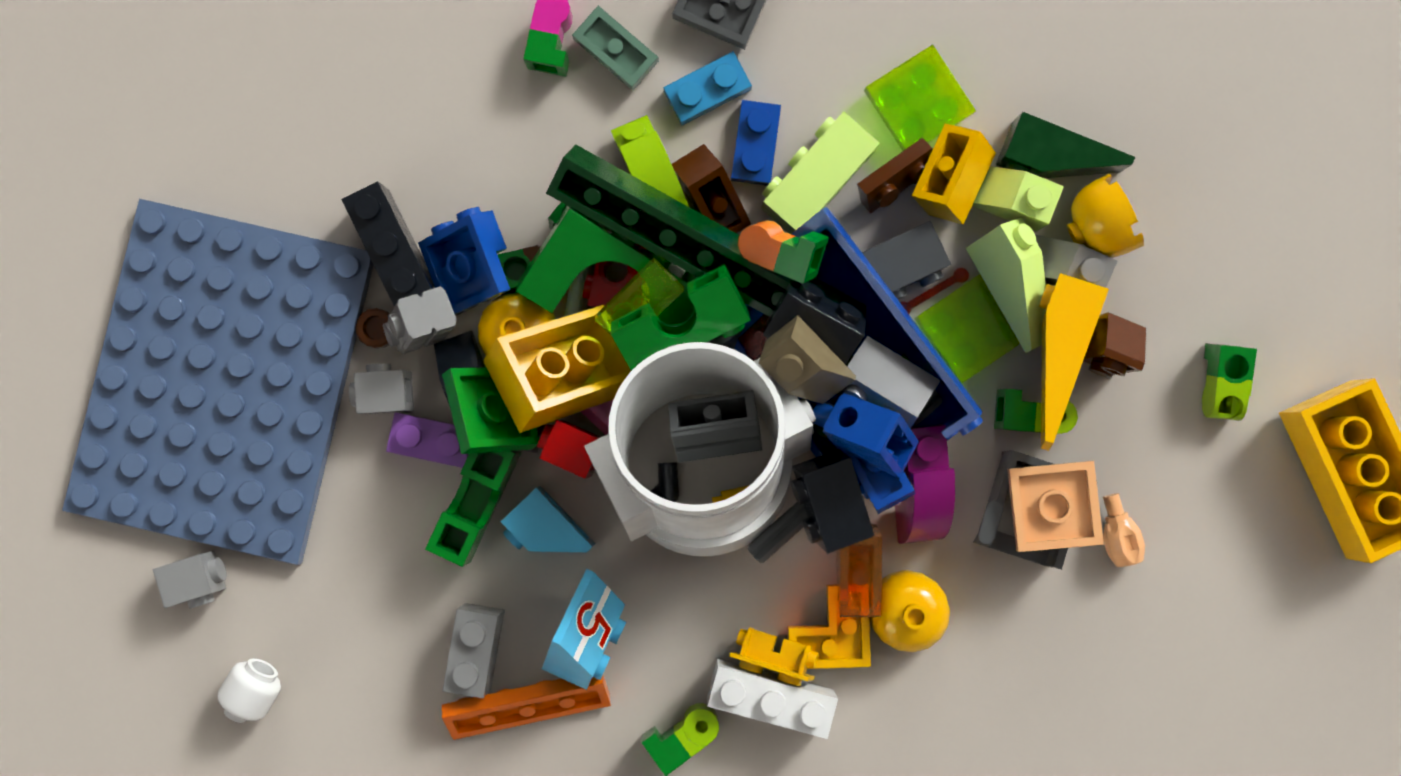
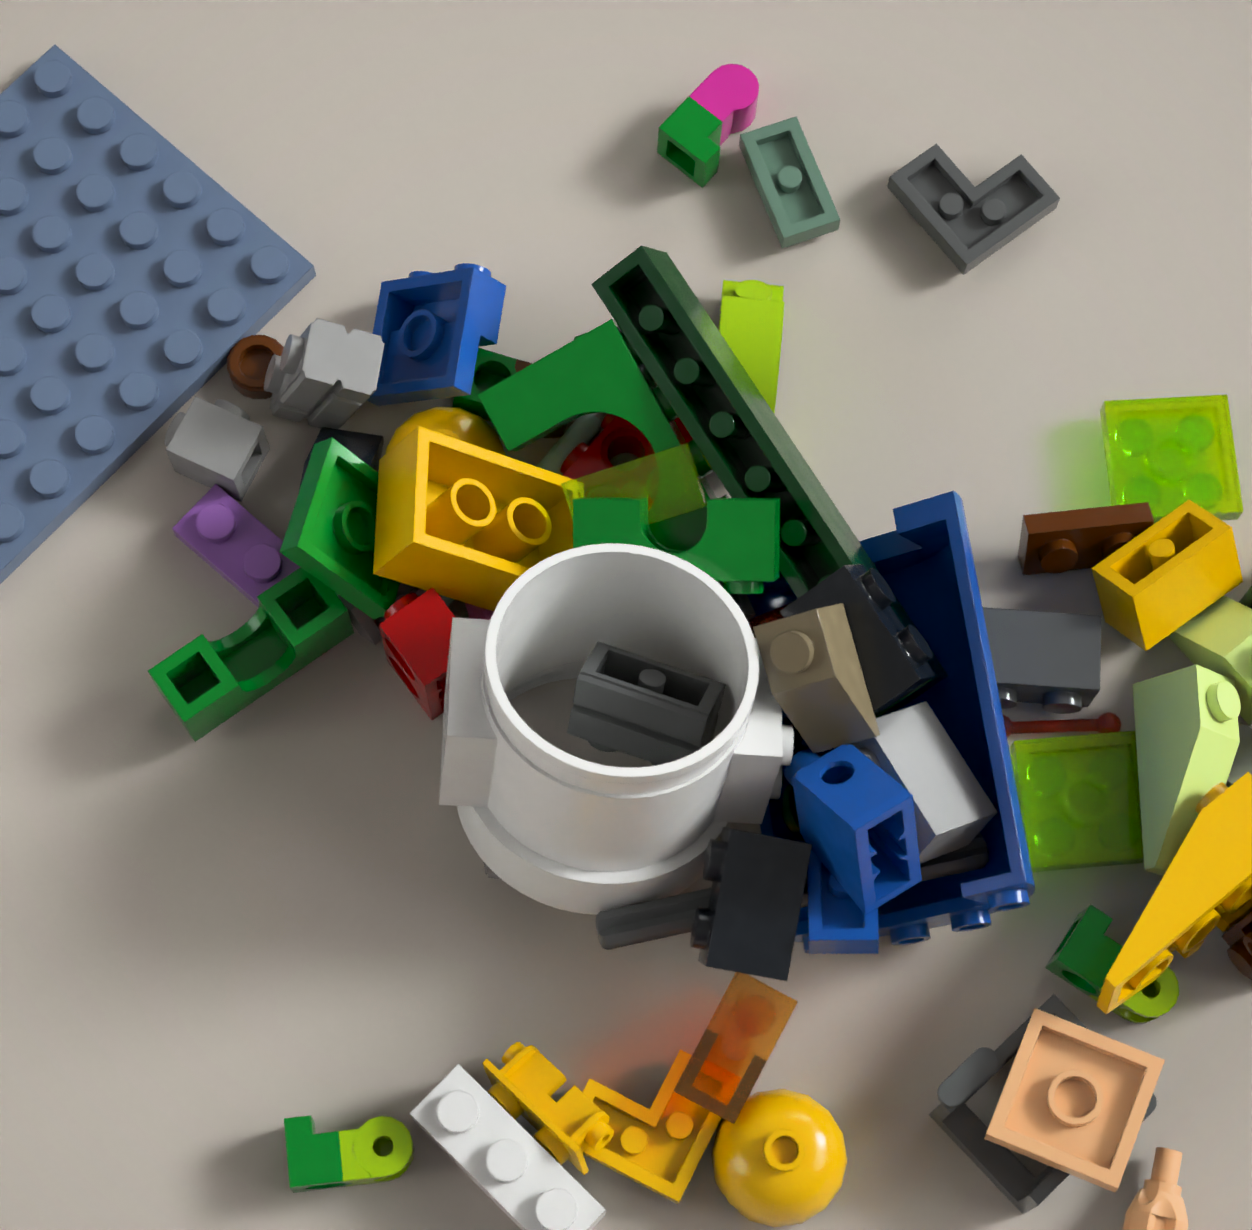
camera: 30 degrees right, 15 degrees down
(388, 242) = (344, 250): black brick -> none
(473, 650) = (127, 857): light grey brick -> none
(522, 706) = (152, 979): orange plate -> none
(544, 526) = (325, 743): medium azure slope -> none
(585, 632) = (297, 907): medium azure slope -> none
(707, 88) = (885, 297): dark azure plate -> none
(710, 189) = (816, 418): reddish brown slope -> none
(756, 142) = (912, 400): blue plate -> none
(782, 252) = (857, 510): leg -> none
(818, 172) = (996, 474): yellowish green brick -> none
(931, 510) = (898, 983): magenta arch -> none

